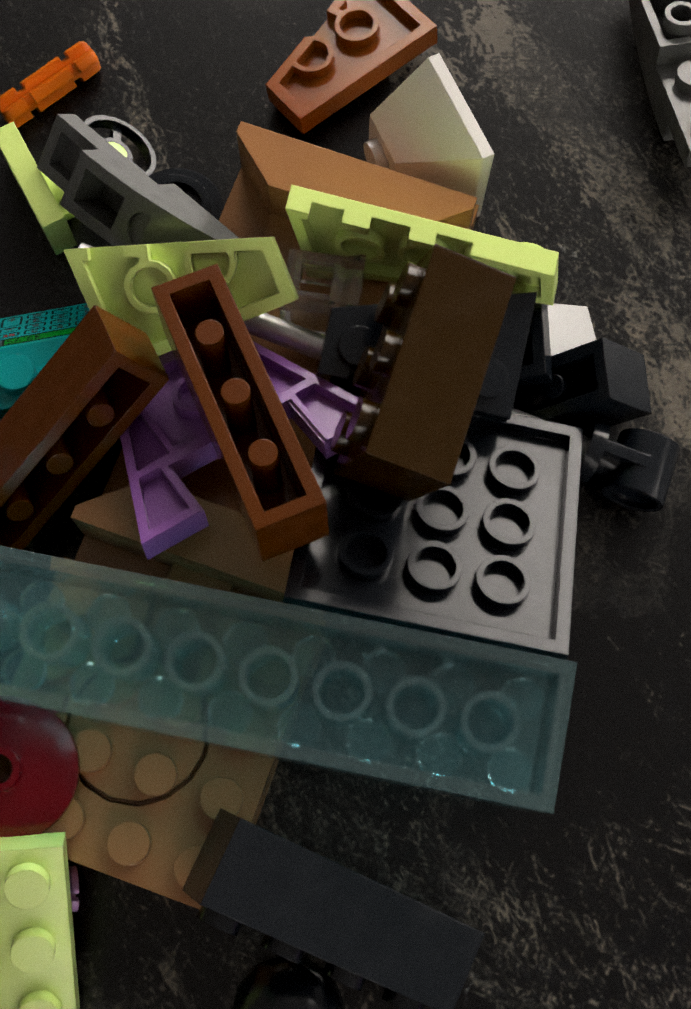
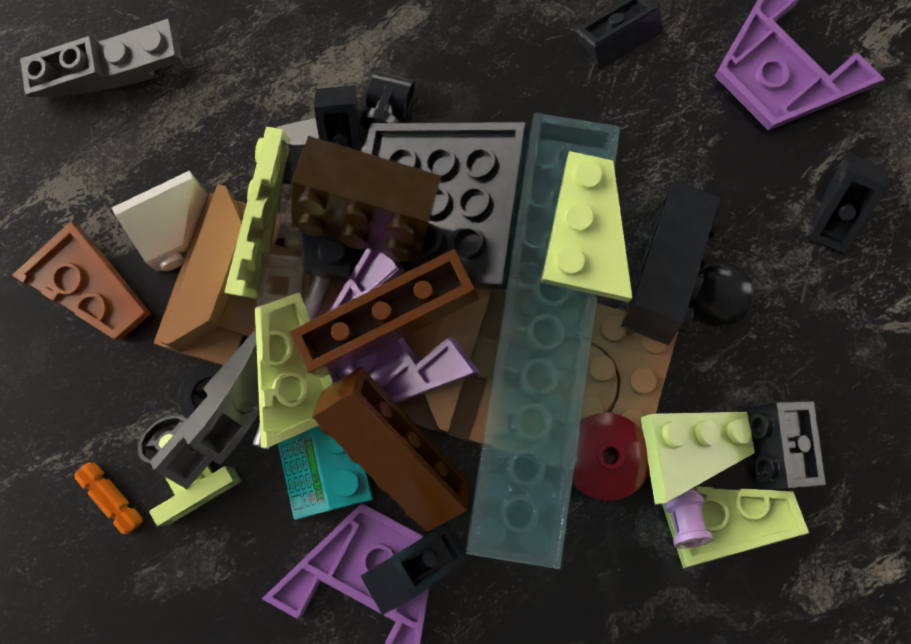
camera: 90 degrees left, 5 degrees up
(360, 737) = (587, 232): none -> yellowish green wing

